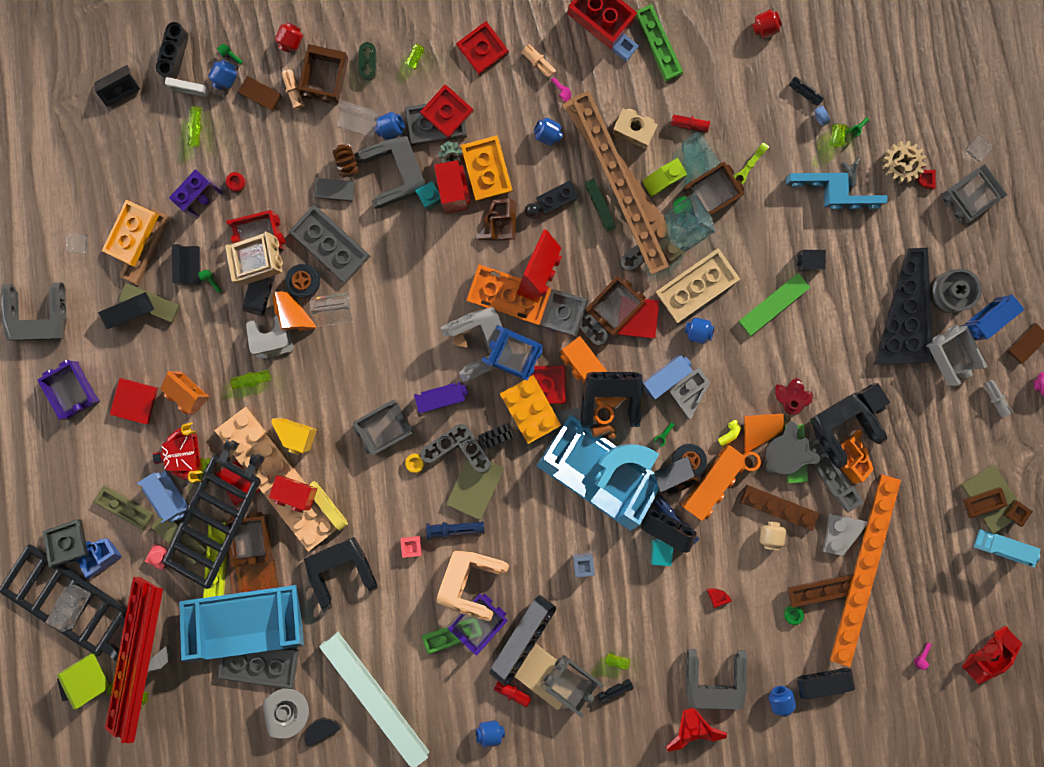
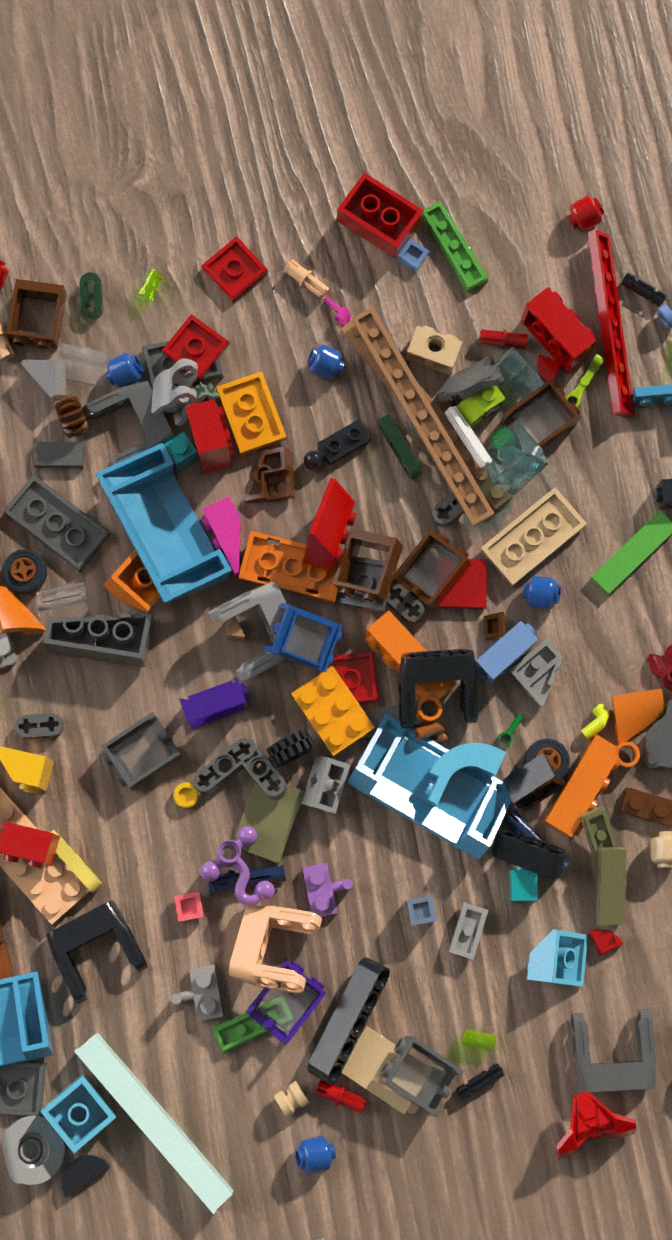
camera: 10 degrees left, 10 degrees down
(307, 406) = (39, 719): none -> dark grey beam
(319, 690) = (78, 1113): none -> medium azure brick
(330, 125) = (49, 375): none -> light grey slope
(363, 339) = (102, 637): none -> dark grey wedge
(391, 295) = (133, 584): none -> orange slope
(410, 254) = (163, 525): none -> dark azure slope
(417, 609) = (204, 993): none -> light grey plate
(425, 146) = (173, 390): none -> light grey piece
(429, 523) = (211, 870): none -> medium lavender piece
(460, 258) = (226, 527): none -> dark pink slope
(476, 692) = (291, 1099): none -> tan wheel
(511, 542) = (321, 890): none -> medium lavender plate
(520, 465) = (325, 784): none -> light grey brick
(552, 293) = (375, 541): none -> reddish brown window
(617, 582) = (468, 931): none -> light grey plate
(654, 202) = (468, 437): none -> white axle
(660, 353) = (494, 626): none -> reddish brown slope
(661, 156) = (471, 380): none -> dark grey tile
(683, 610) = (559, 958): none -> medium azure slope
(722, 150) = (547, 367): none -> red tile
(725, 528) = (598, 831): none -> olive tile
(727, 558) = (610, 886): none -> olive tile
(734, 120) = (558, 329): none -> red brick
(777, 117) = (611, 324): none -> red plate

